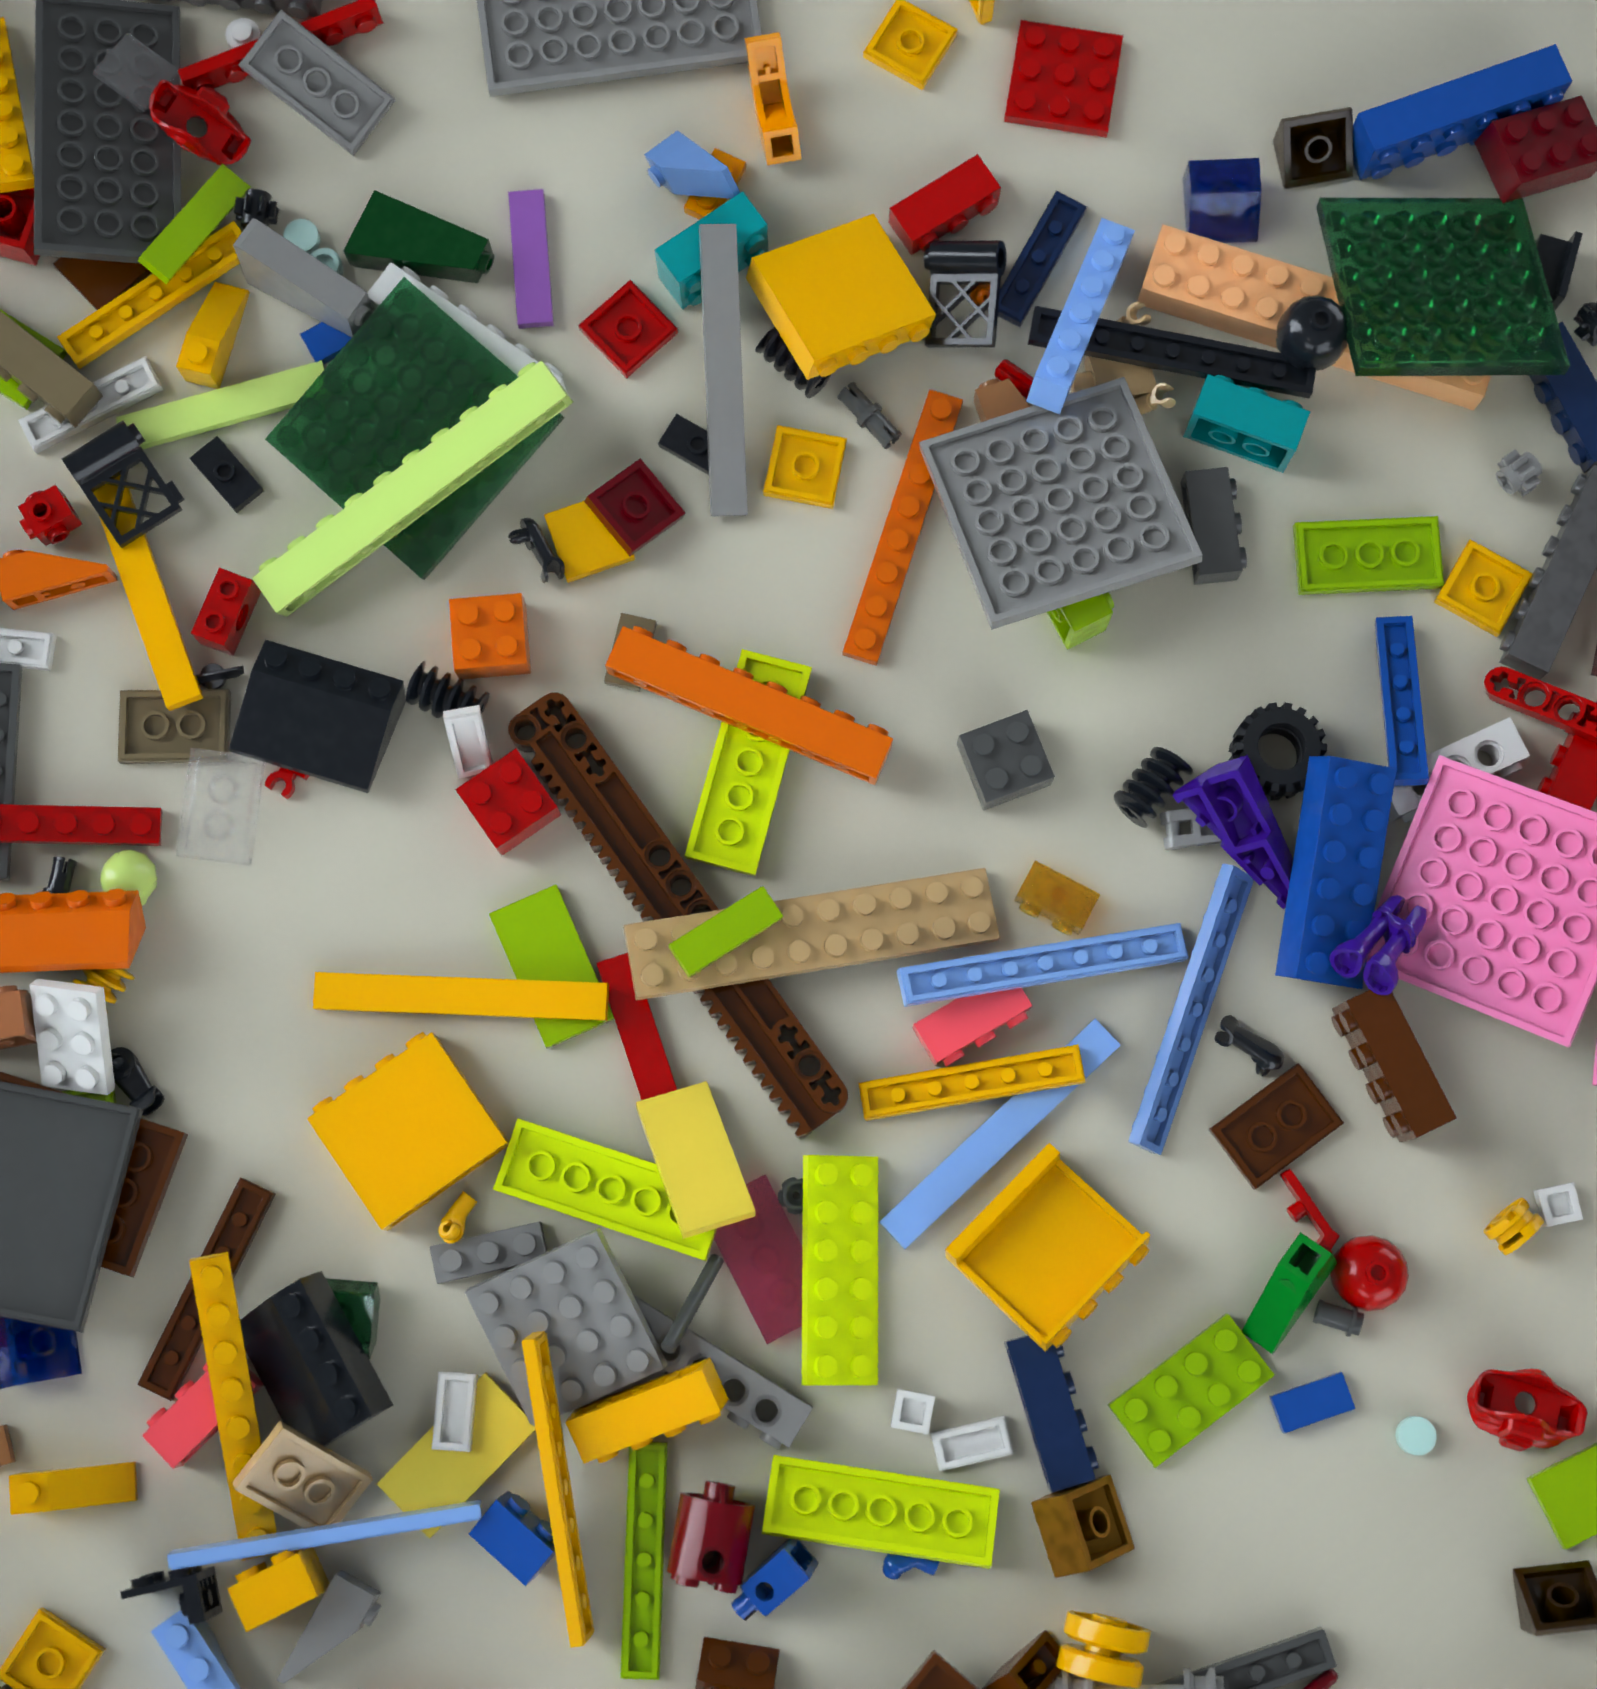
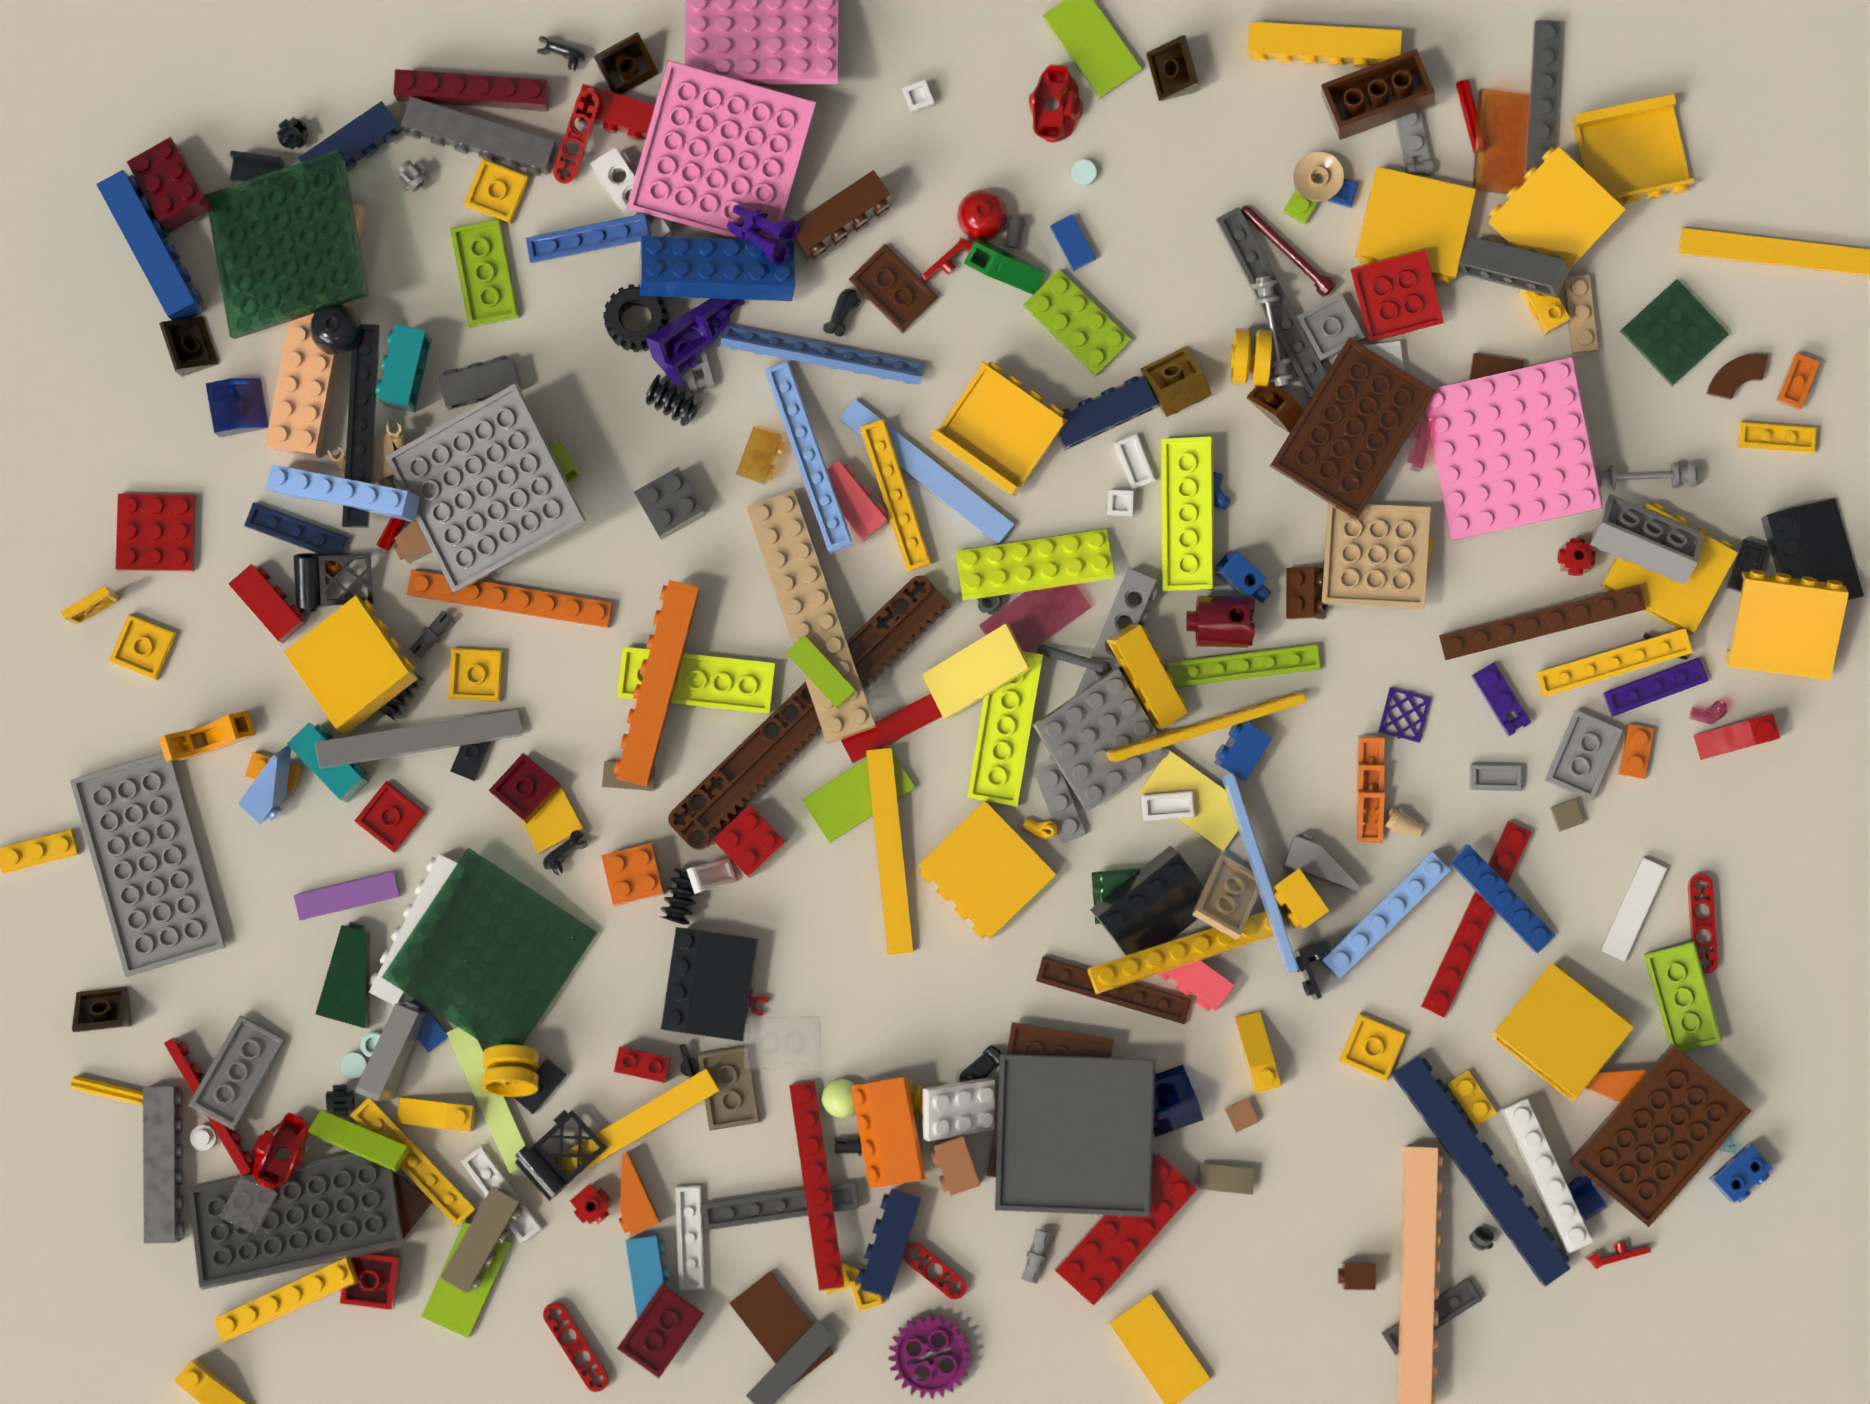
camera: 95 degrees left, 5 degrees up
(251, 431) = (510, 1070): none -> yellow wheel
(412, 488) = (537, 943): yellowish green brick -> none
(1513, 1226) = (937, 124): yellow wheel -> none

